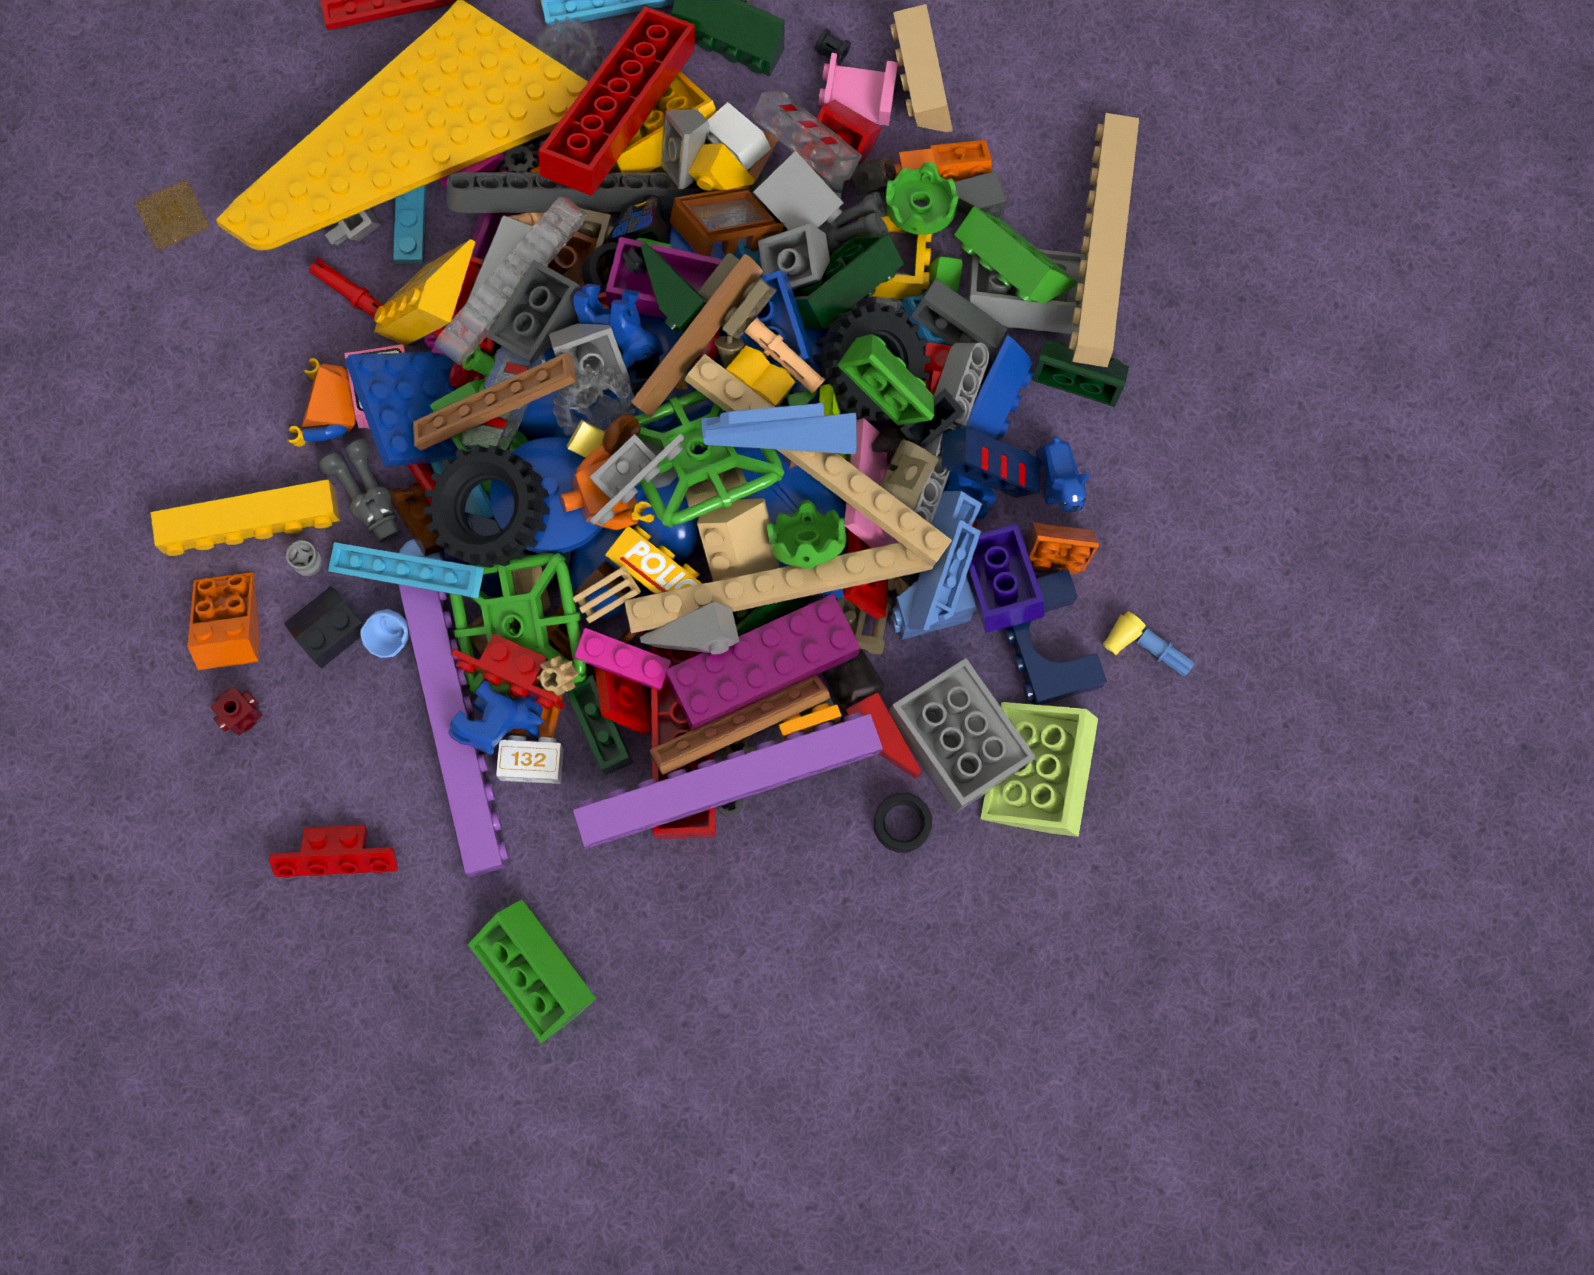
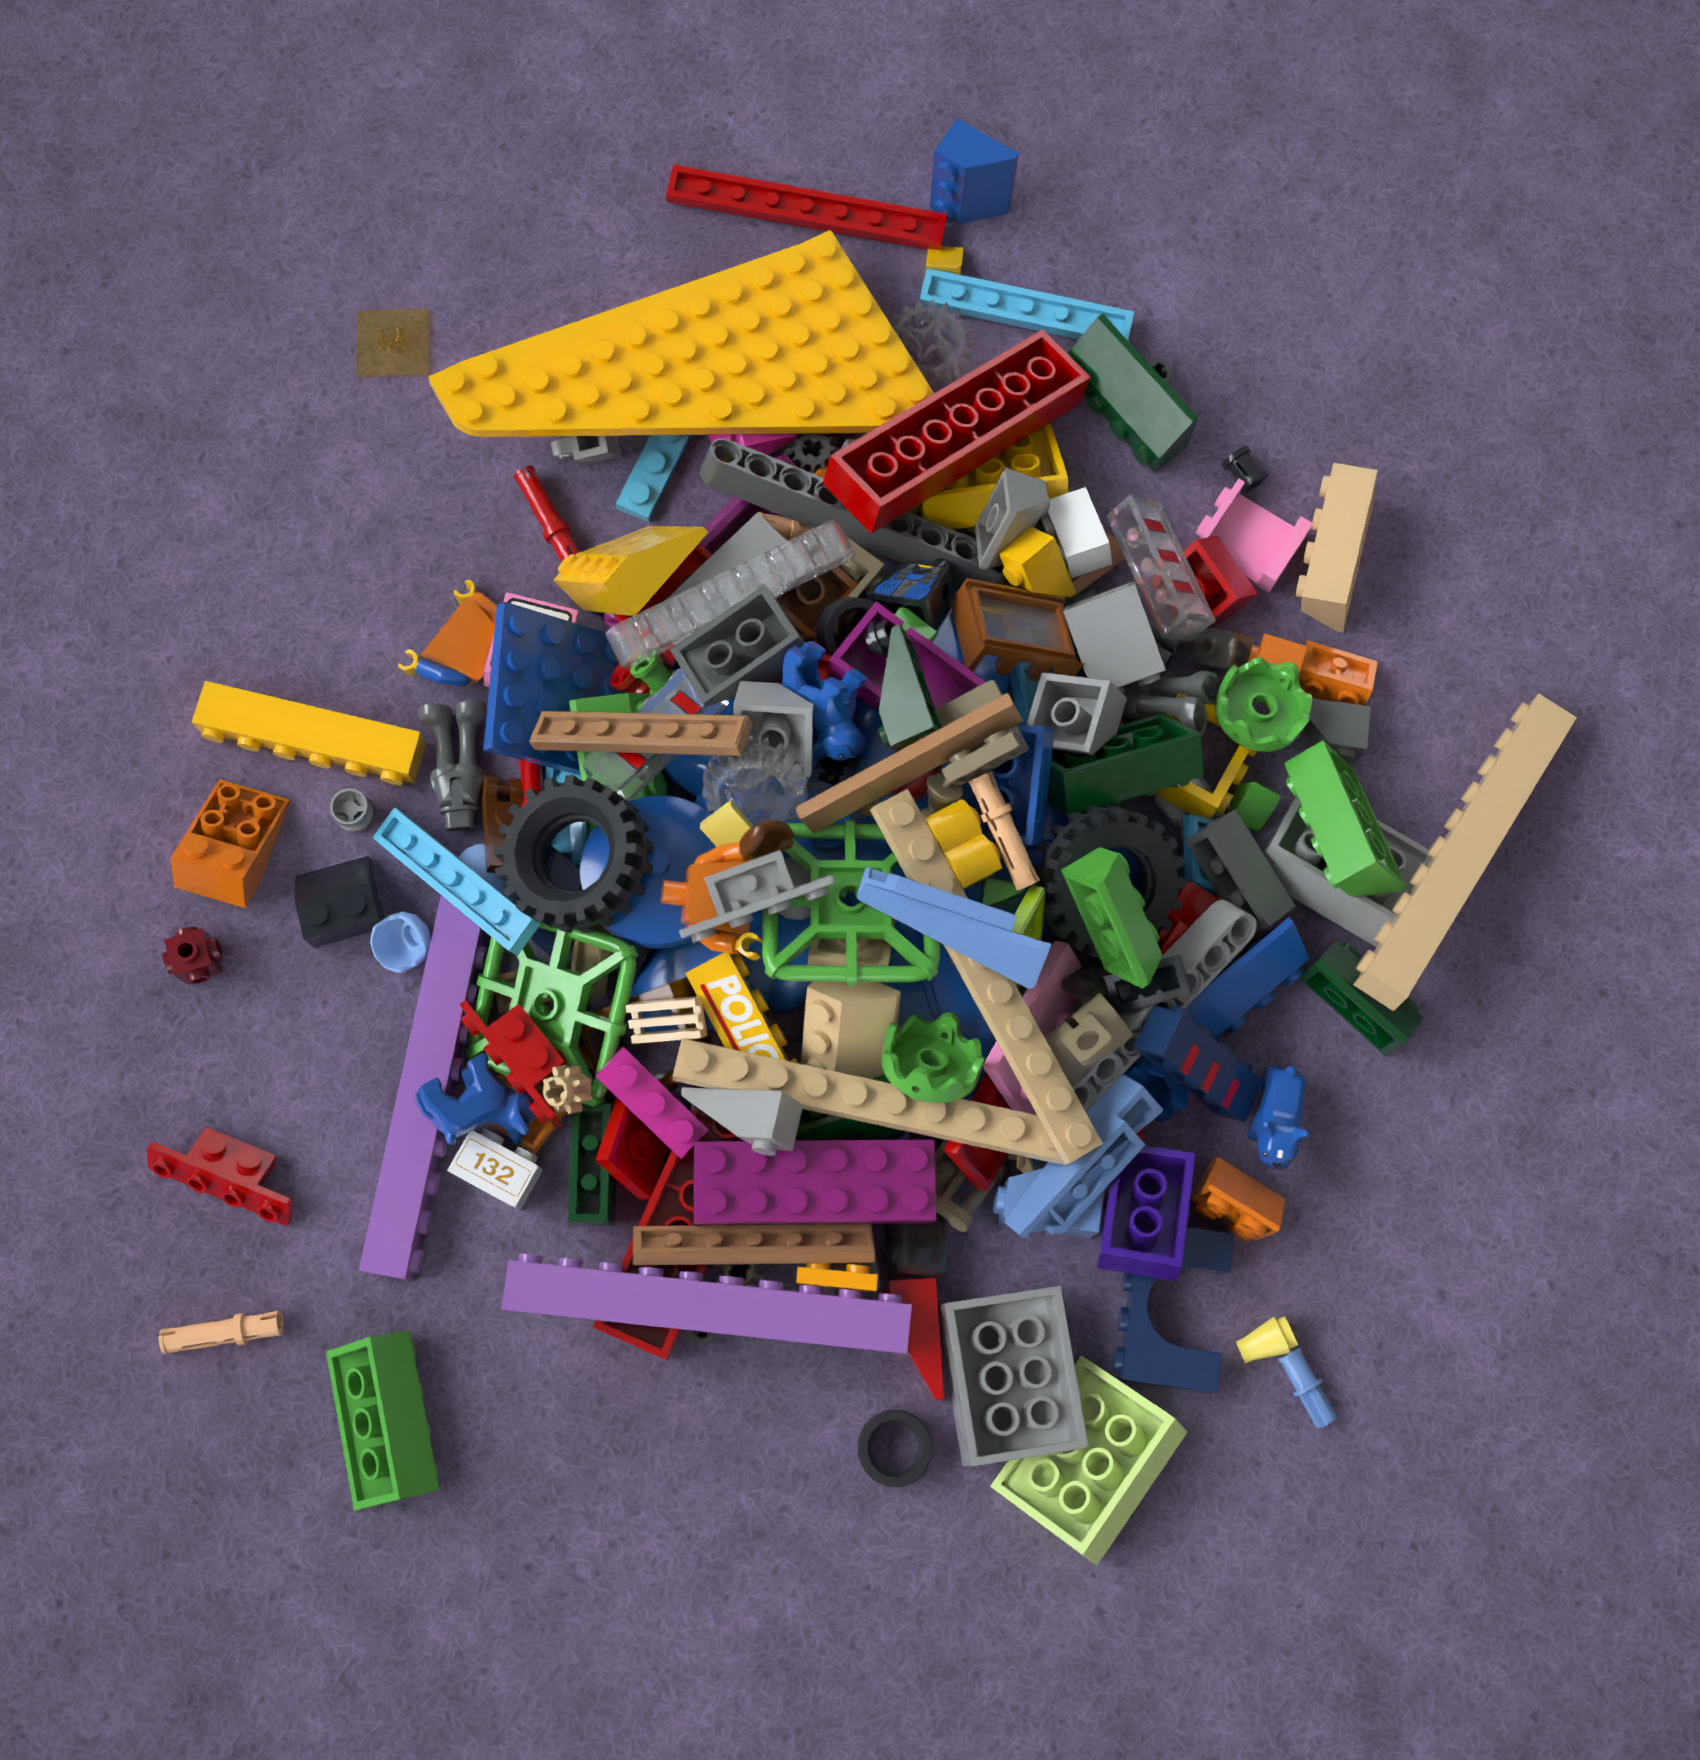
camera: 25 degrees right, 0 degrees up
(380, 968) = (214, 1333): none -> light nougat pin

